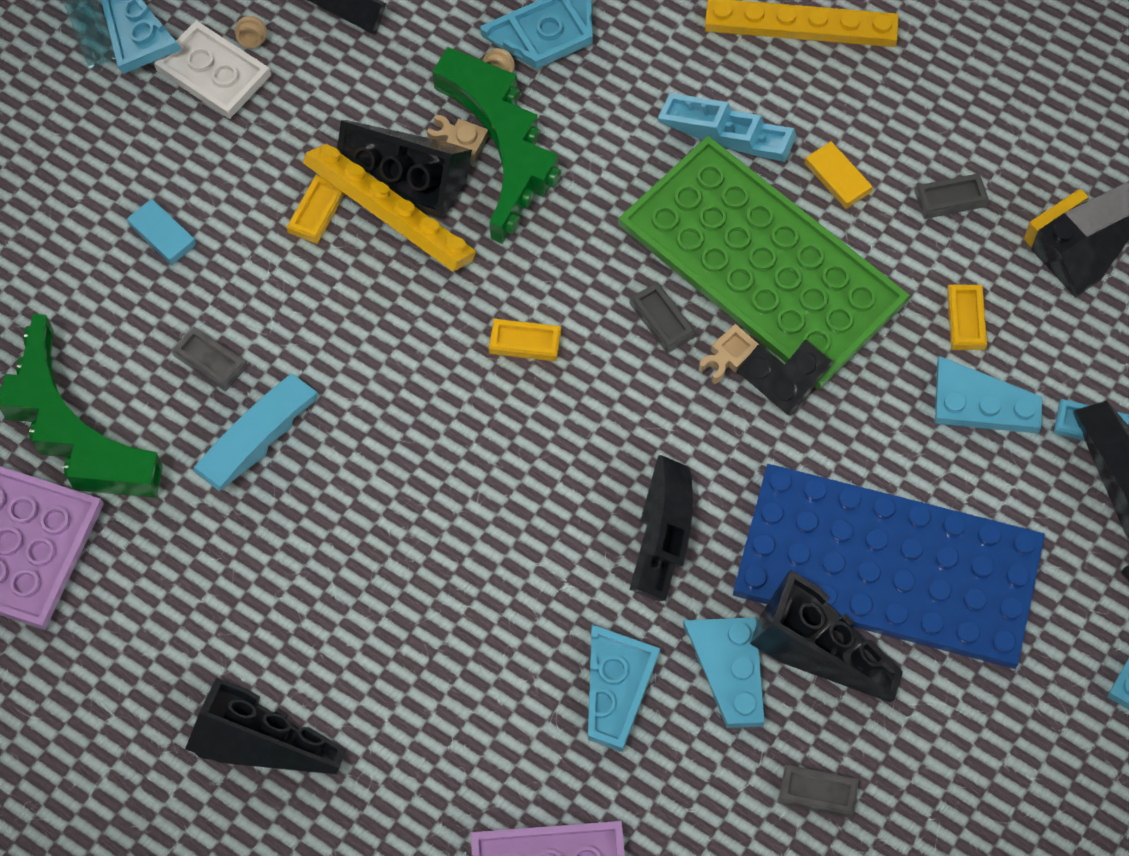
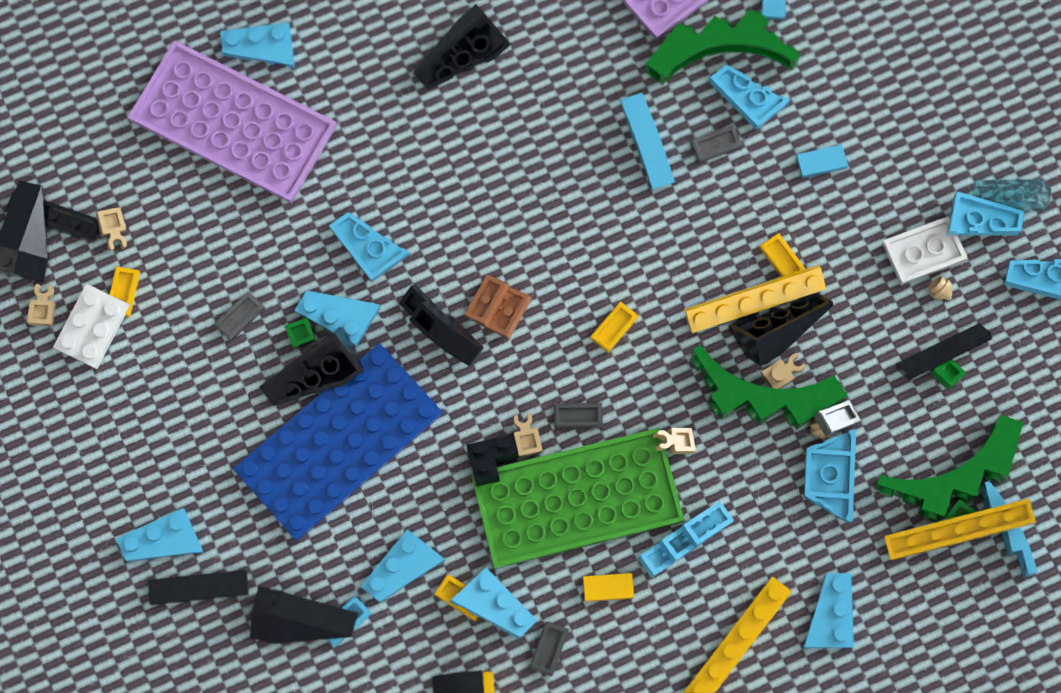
camera: 120 degrees right, 10 degrees up
(123, 352) = (751, 100): none -> medium azure wing
(484, 45) = (837, 418): none -> tile
(589, 482) = (497, 306): none -> nougat slope
(621, 190) = (677, 439): none -> plate
(789, 694) = (300, 333): none -> green plate
(949, 274) = (493, 602): none -> medium azure wing

